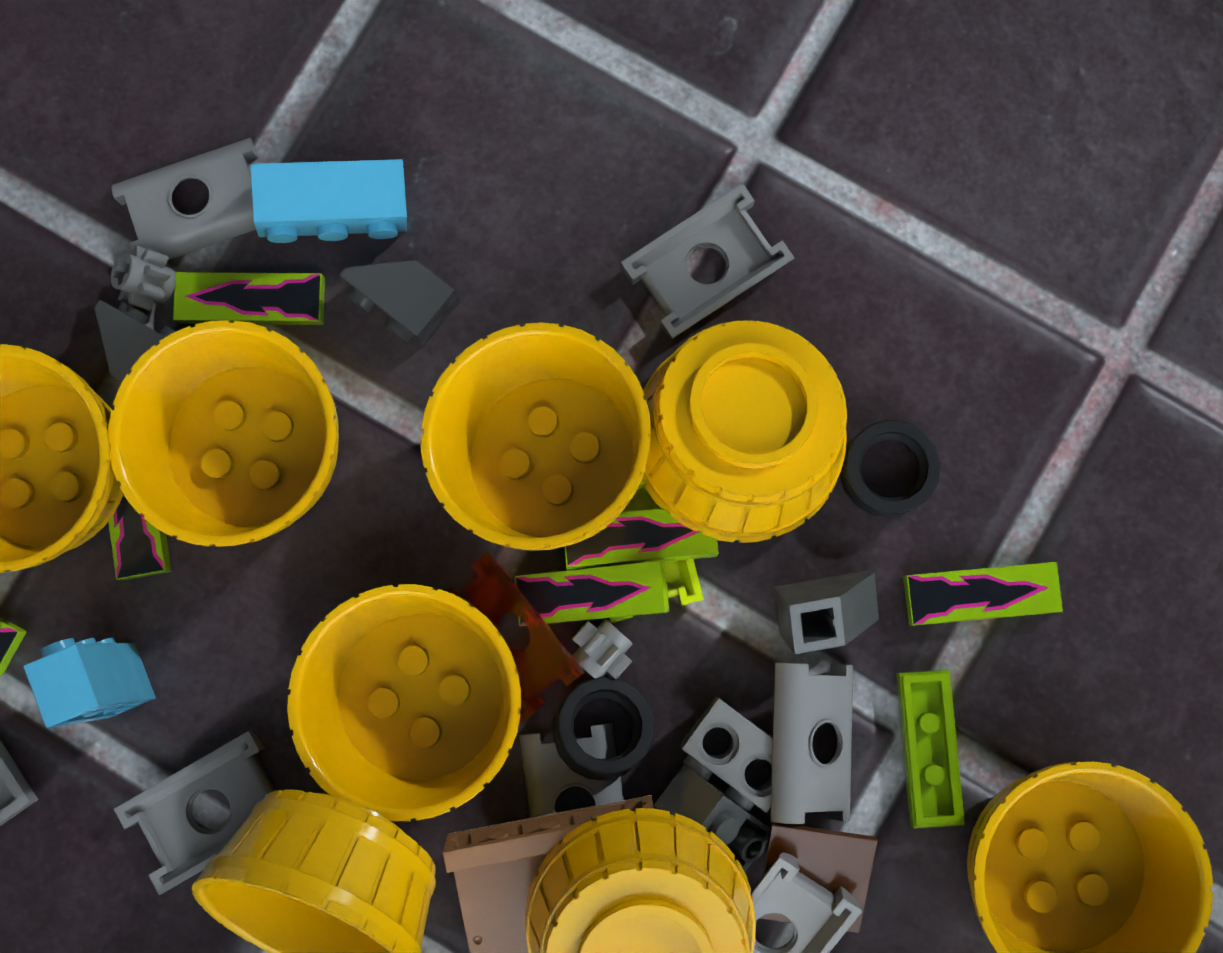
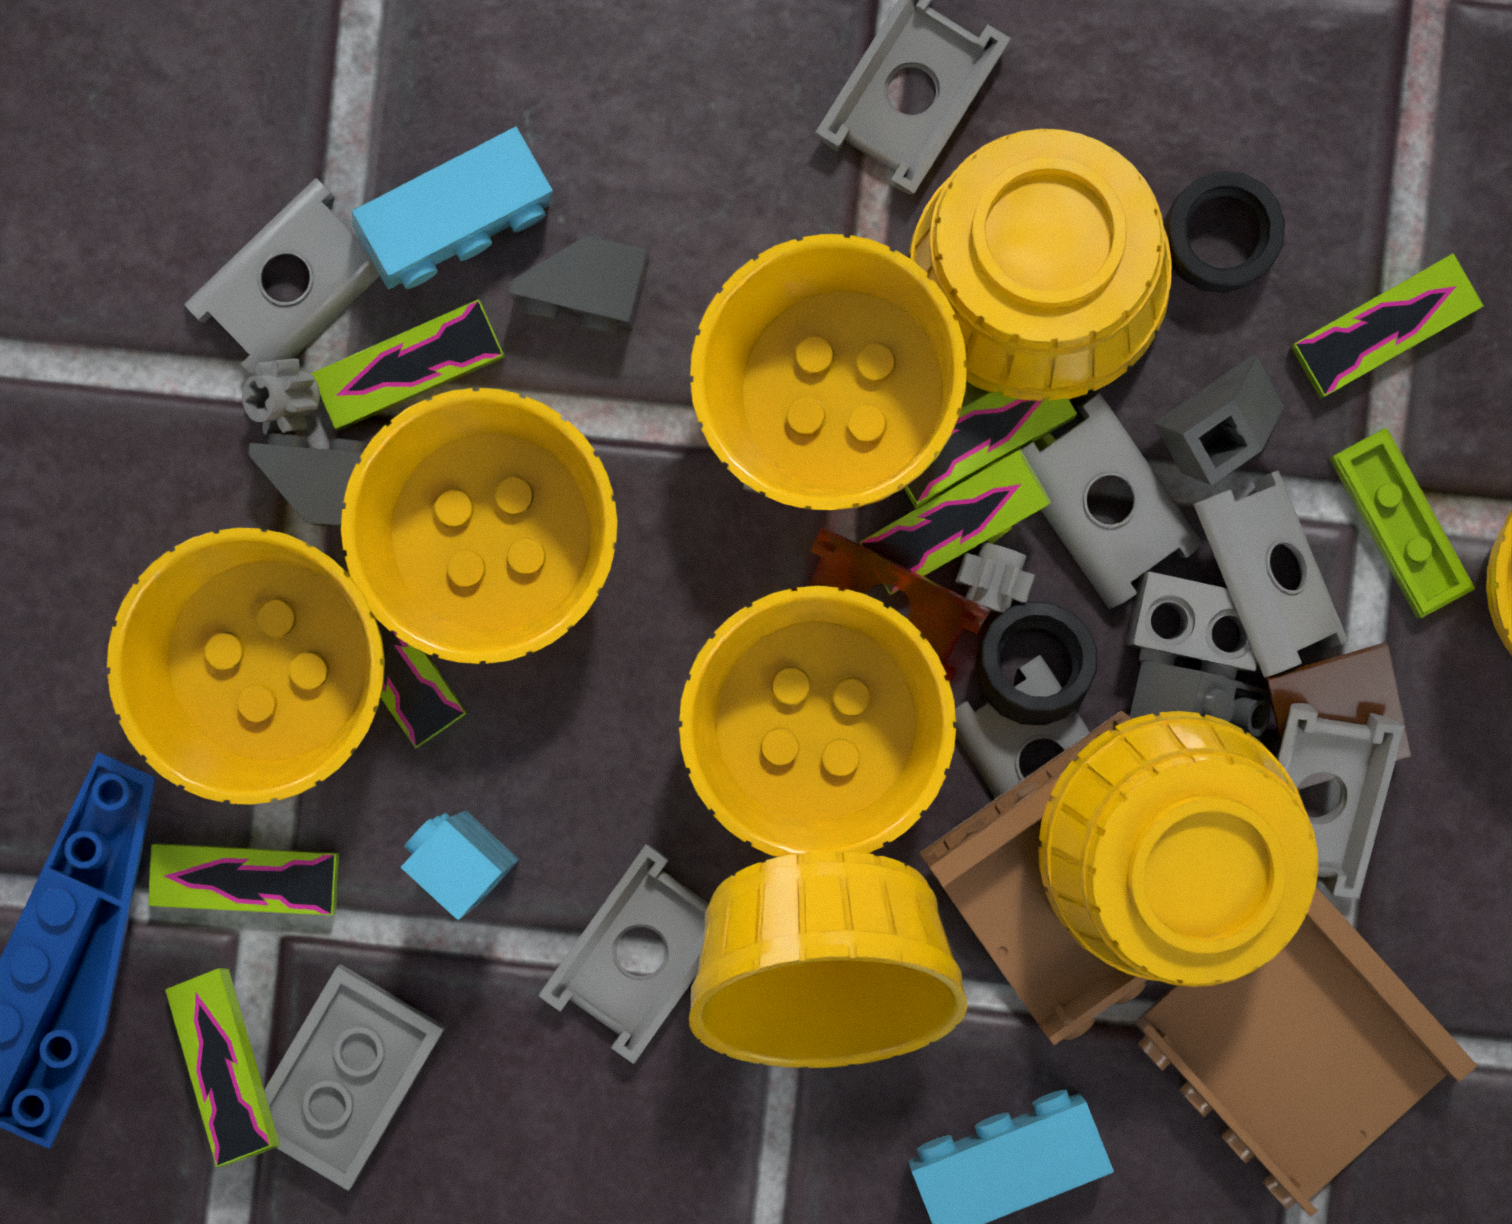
camera: 25 degrees left, 5 degrees up
(706, 672) = (1105, 552): none -> light grey piece

